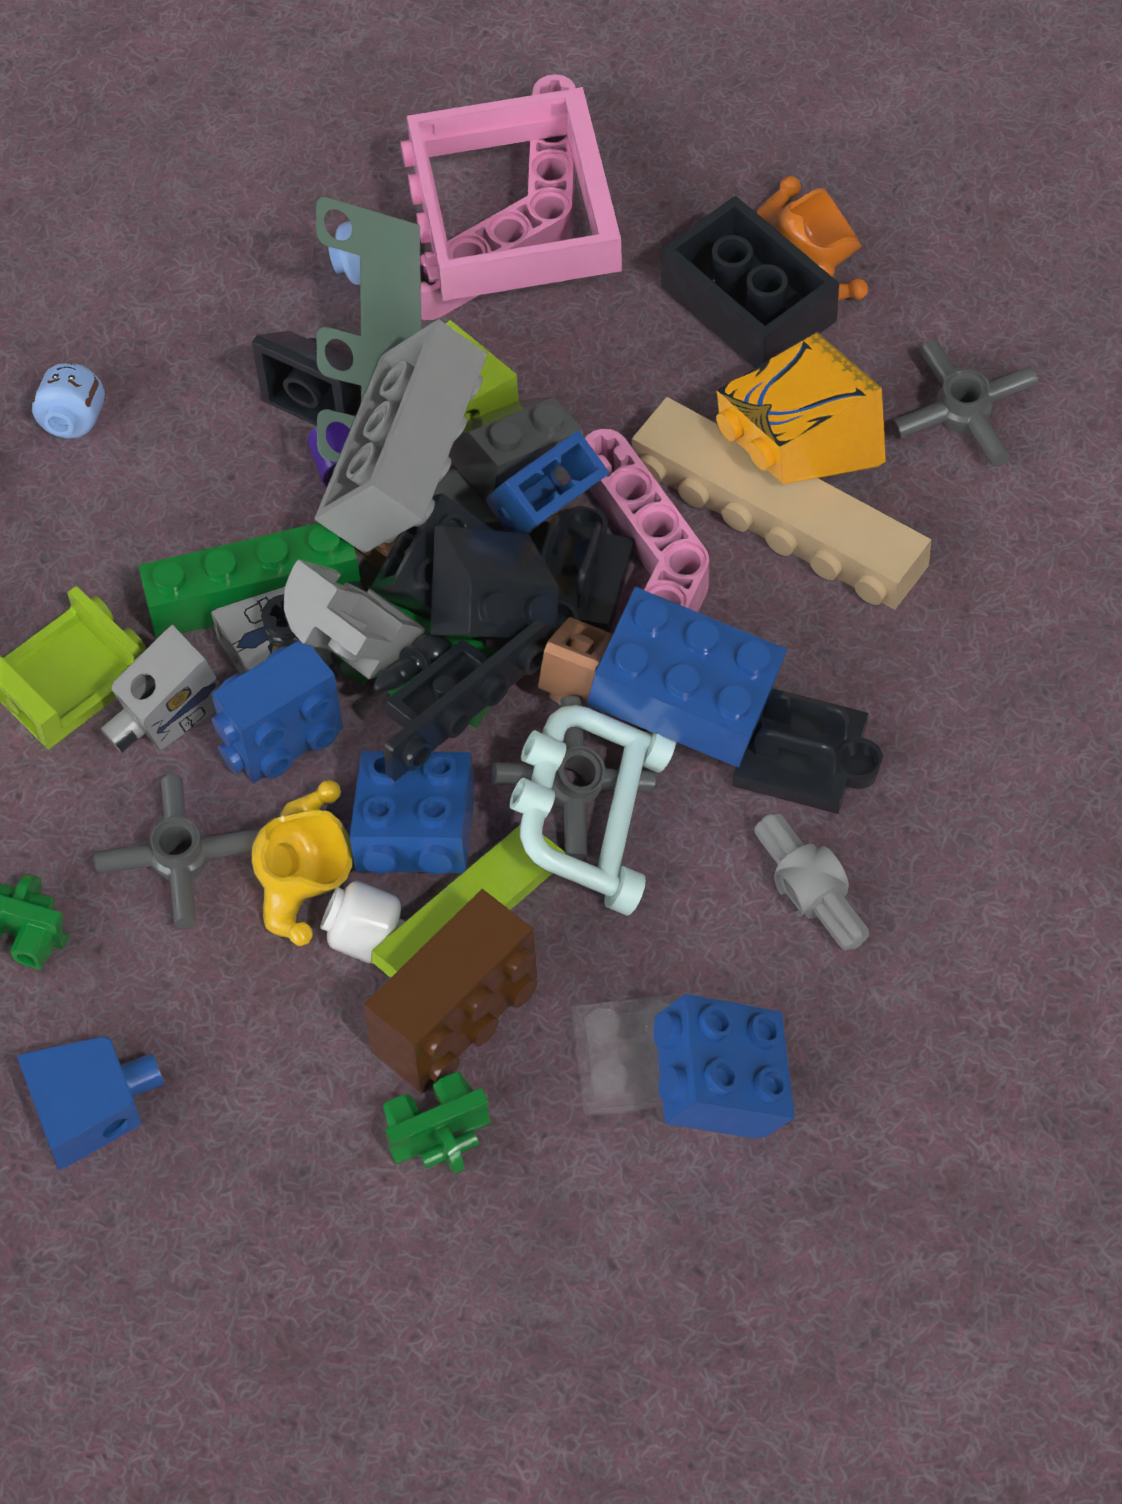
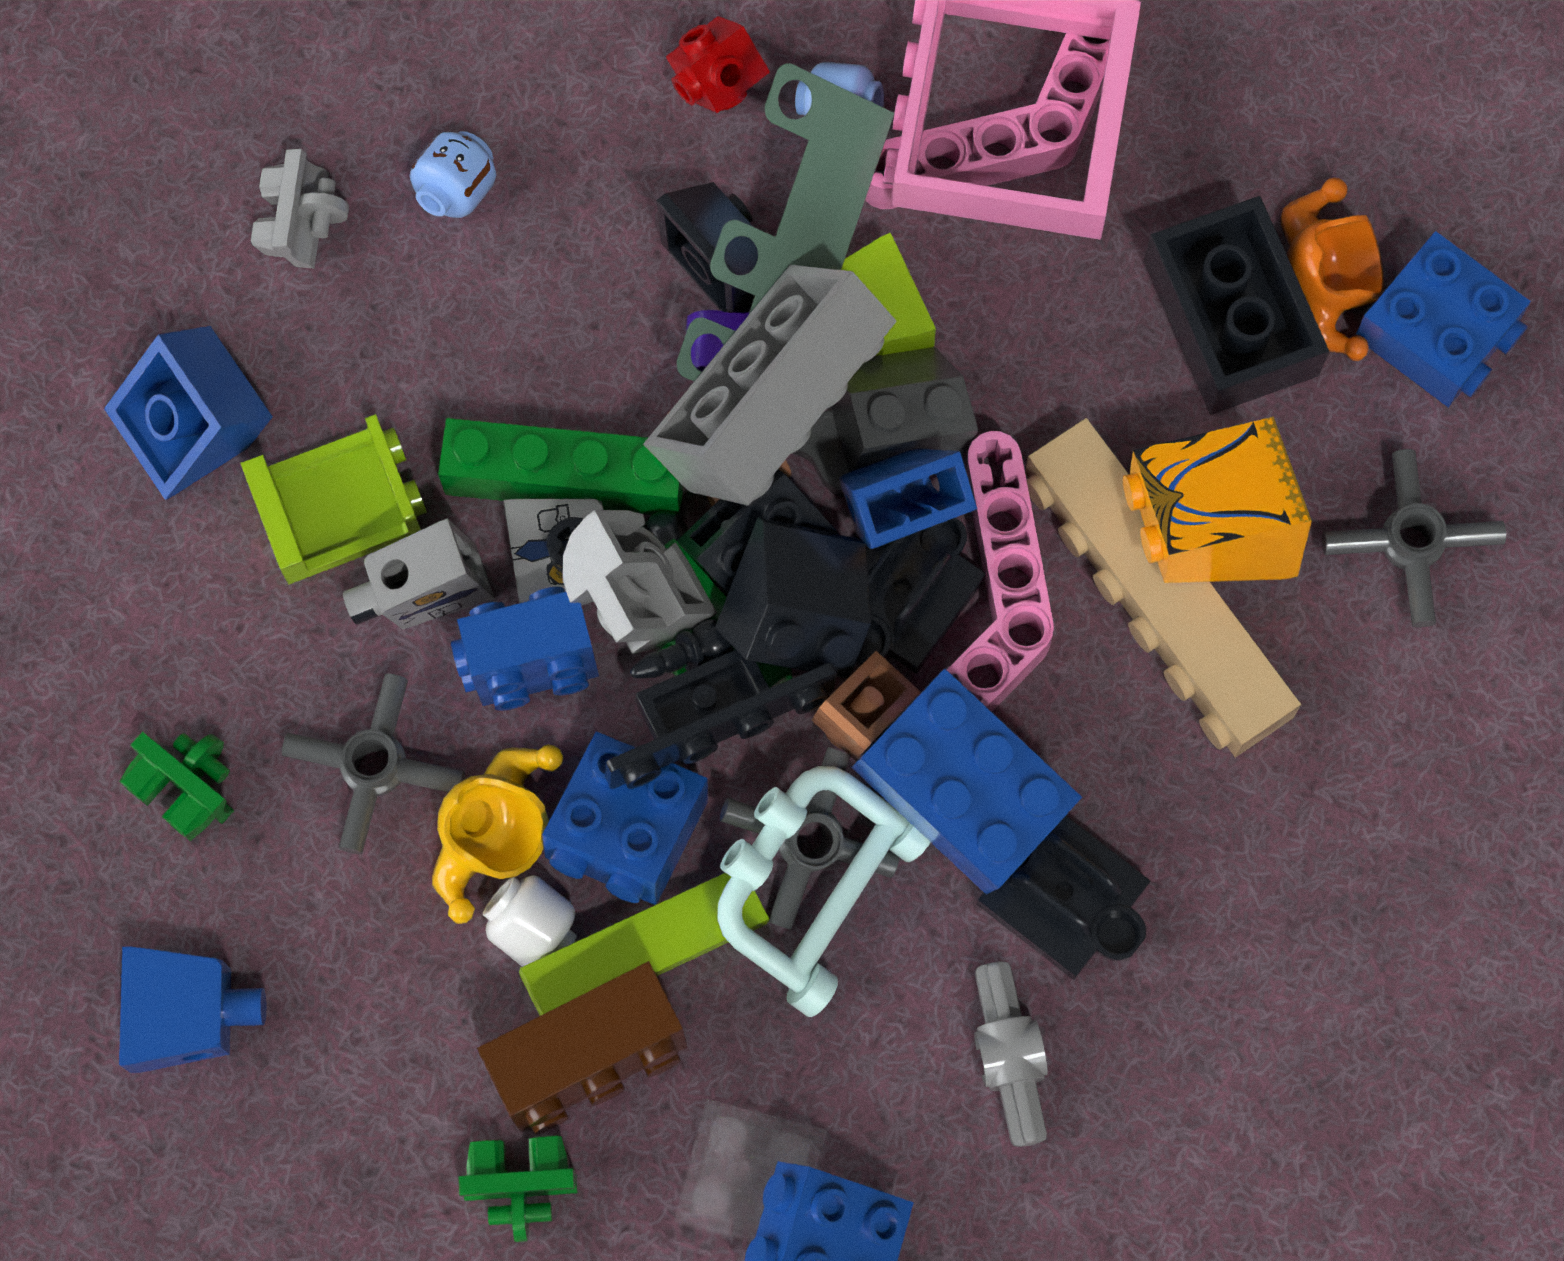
camera: 20 degrees right, 15 degrees up
(256, 253) = (716, 65): none -> red brick
(918, 244) = (1444, 320): none -> blue brick

